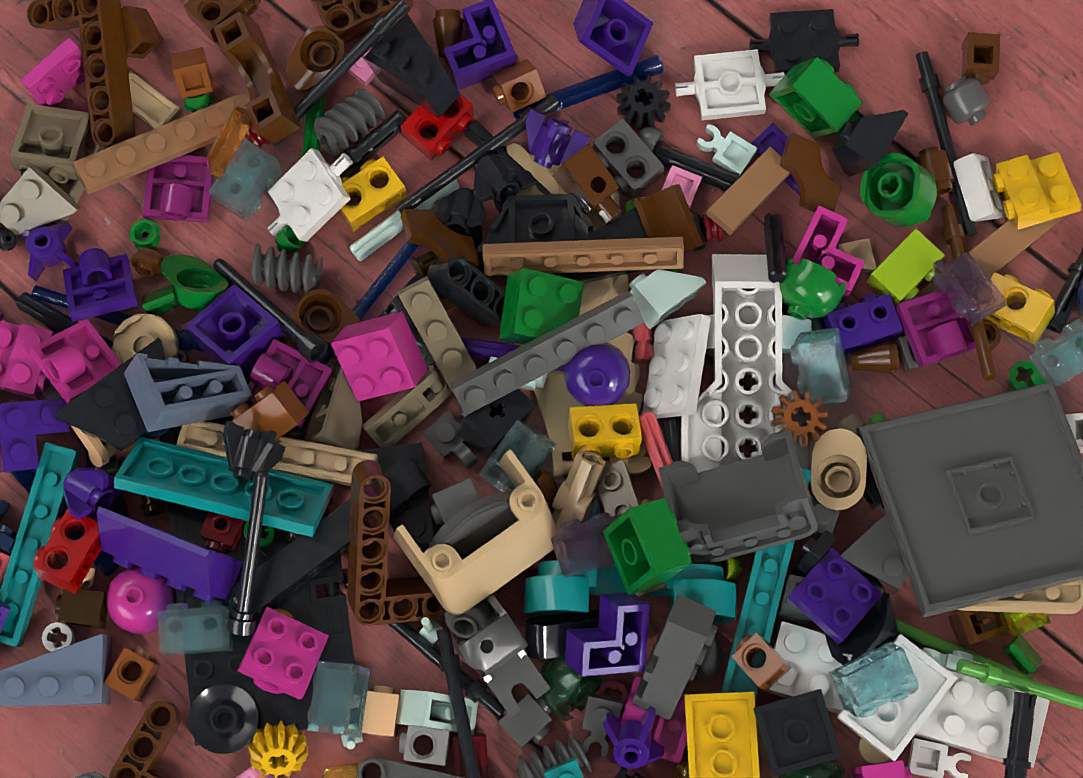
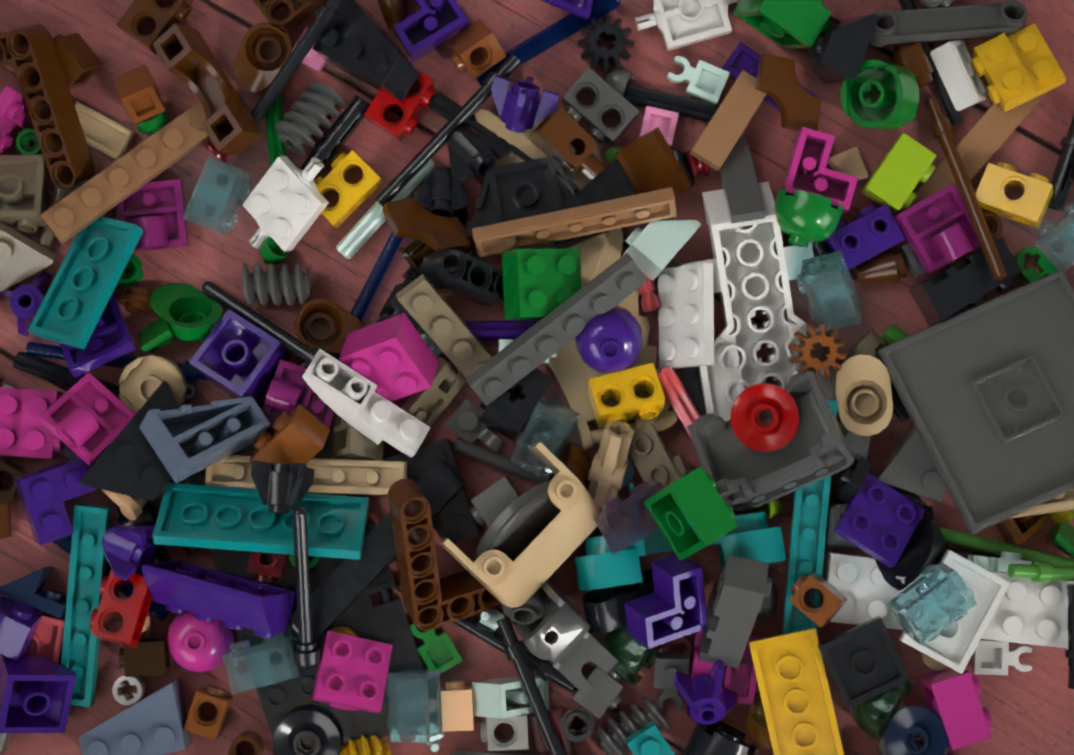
camera: 10 degrees left, 10 degrees up
(74, 96) = (23, 142): none -> green plate
(103, 233) = (85, 282): none -> teal plate
(228, 141) = (192, 164): clear orange tile -> none
(338, 388) = (362, 408): none -> white slope
(372, 652) = (438, 650): none -> green plate
(460, 472) = (495, 460): none -> dark grey bar
(494, 738) = (580, 732): none -> black cone
(731, 454) = (747, 422): none -> red dish
(750, 250) = (741, 184): none -> dark grey tile
(775, 248) = (765, 176): black axle -> none
(954, 382) = (963, 284): none -> black wedge
(968, 287) = (965, 187): bracket -> none
(973, 137) = (948, 23): none -> dark grey piece

